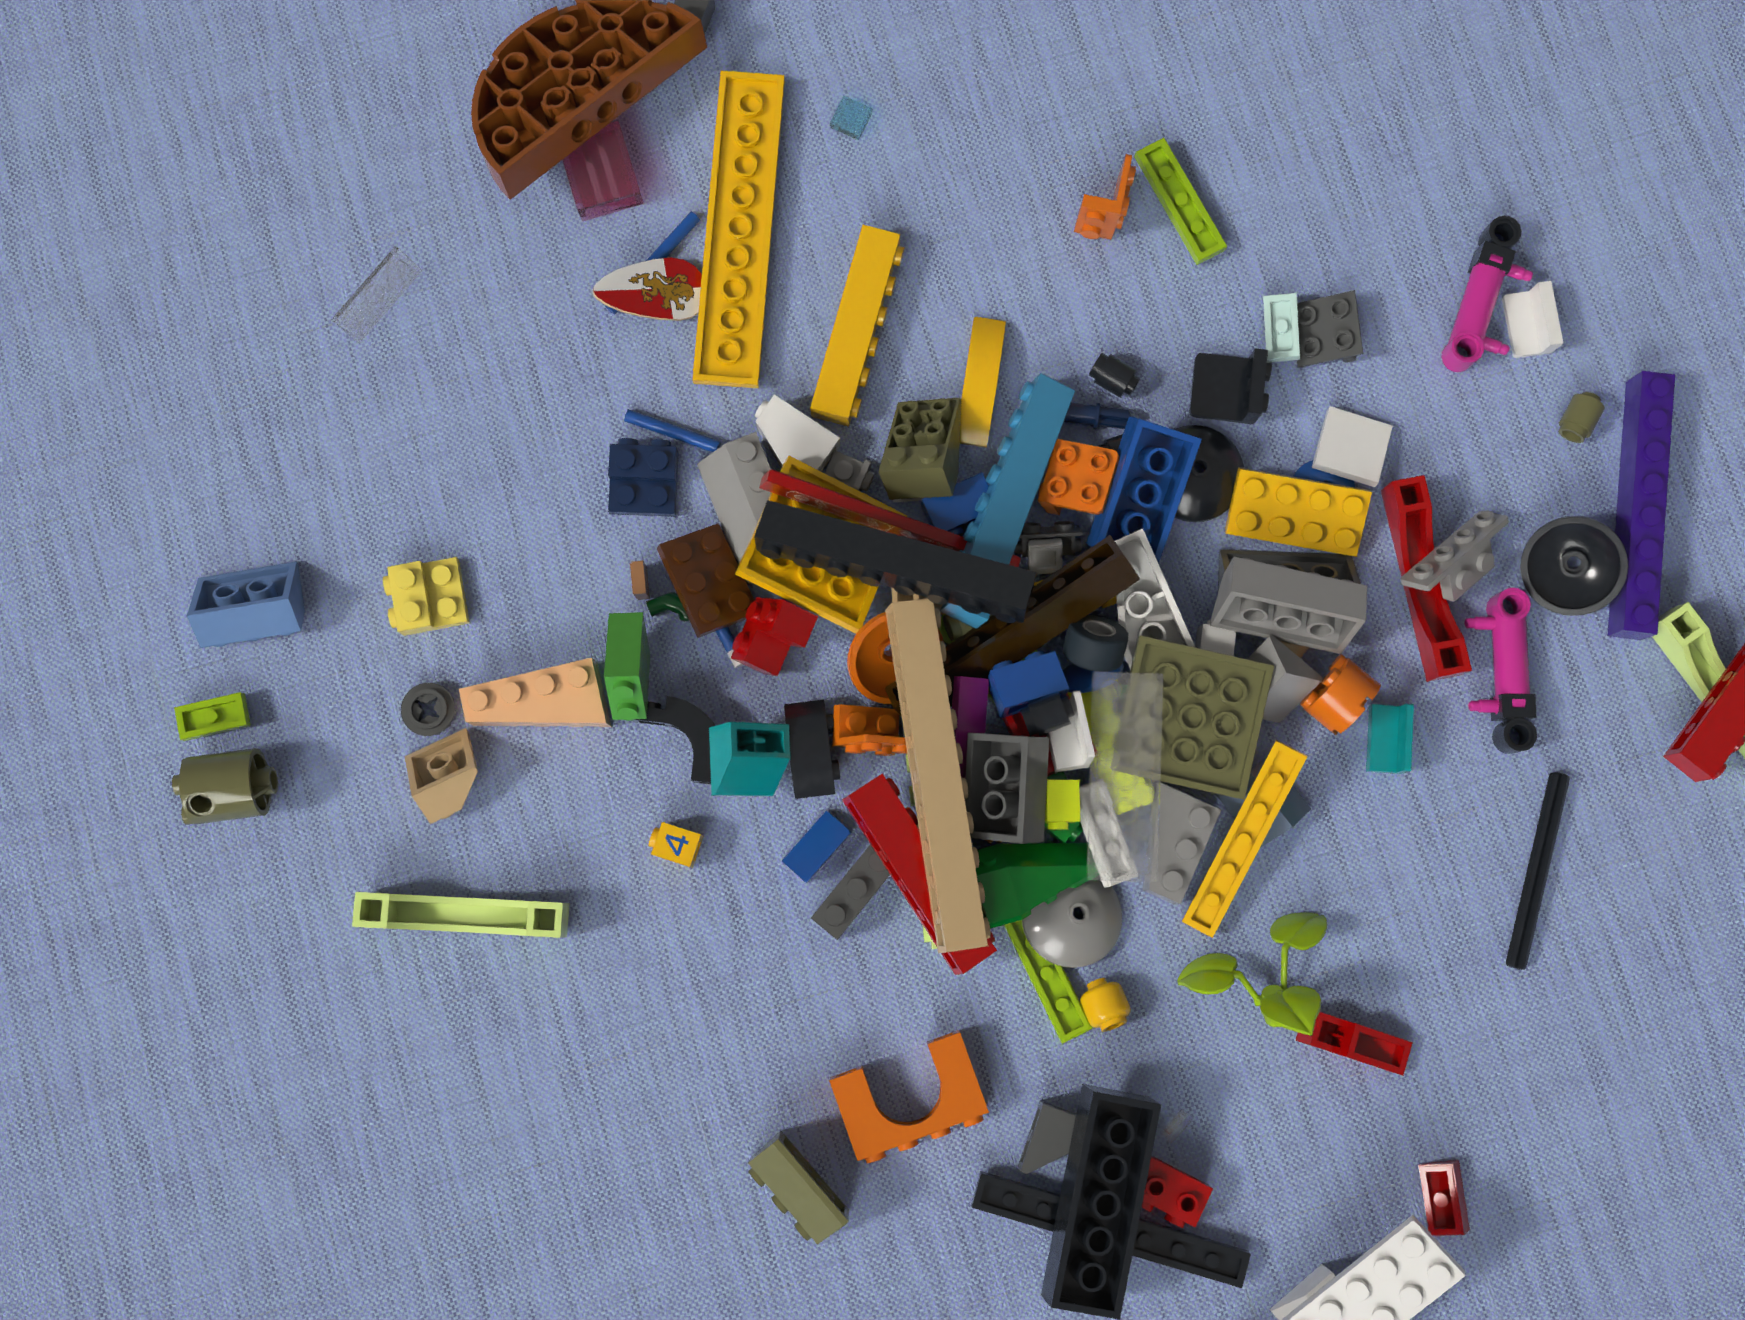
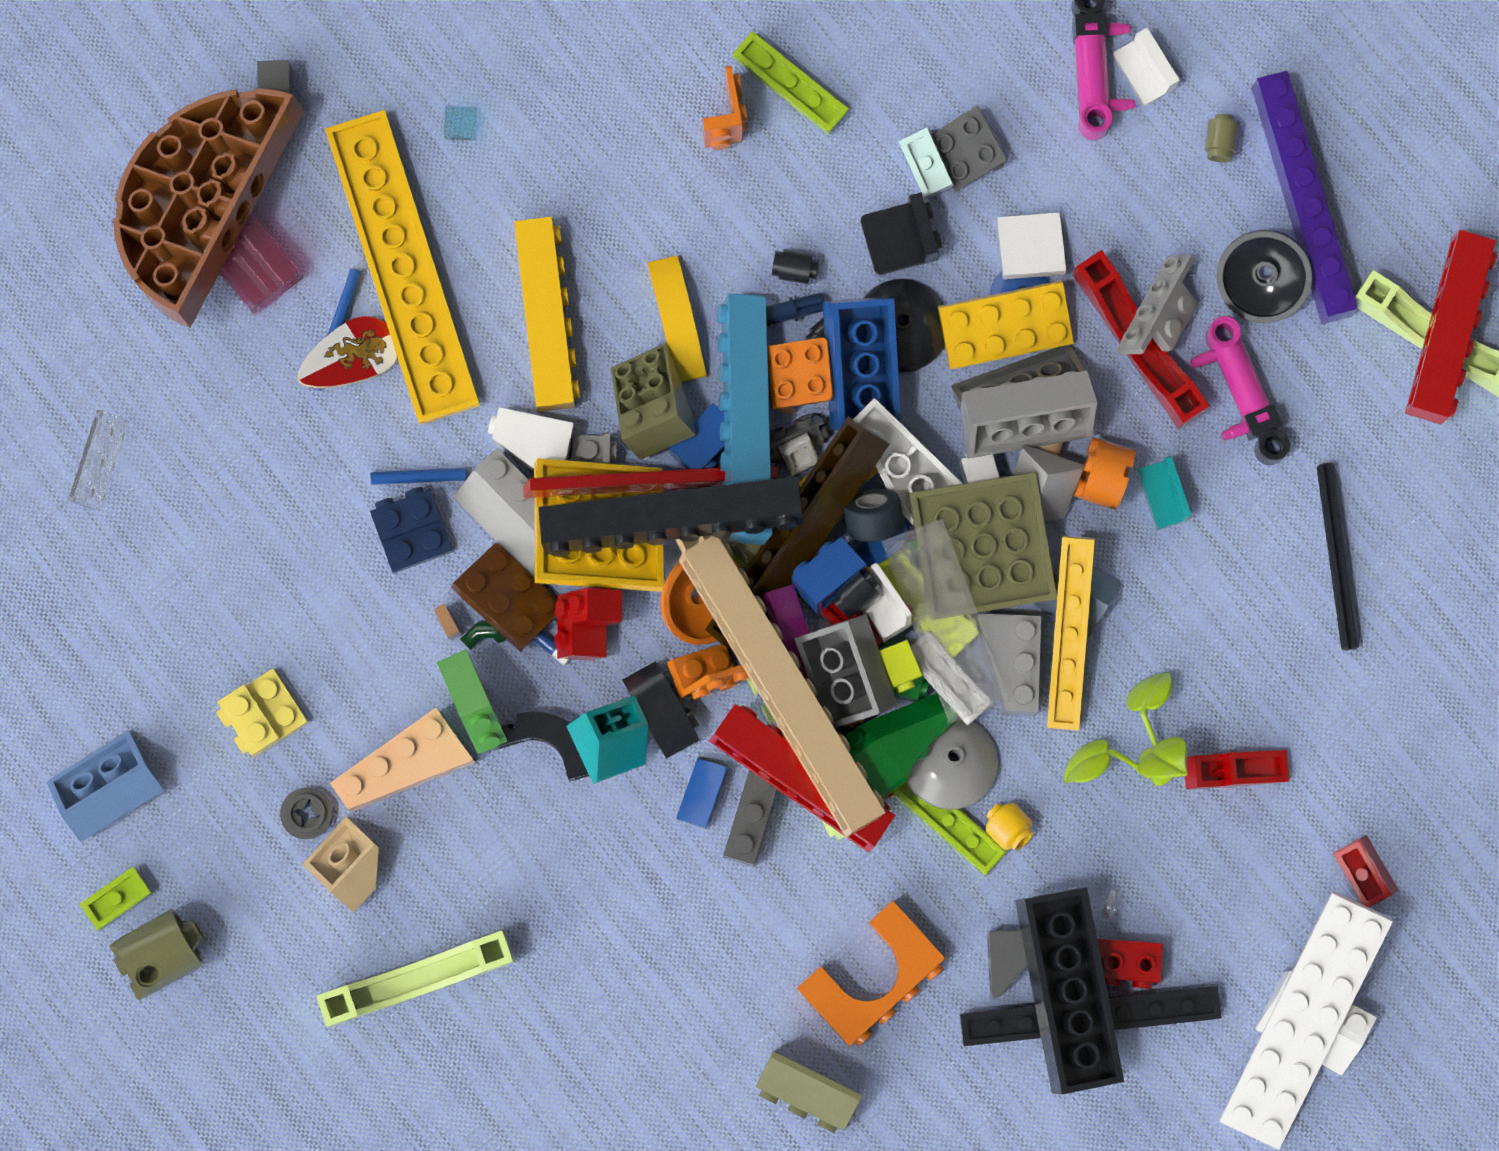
camera: 25 degrees left, 0 degrees up
(675, 844) = (577, 841): yellow brick -> none

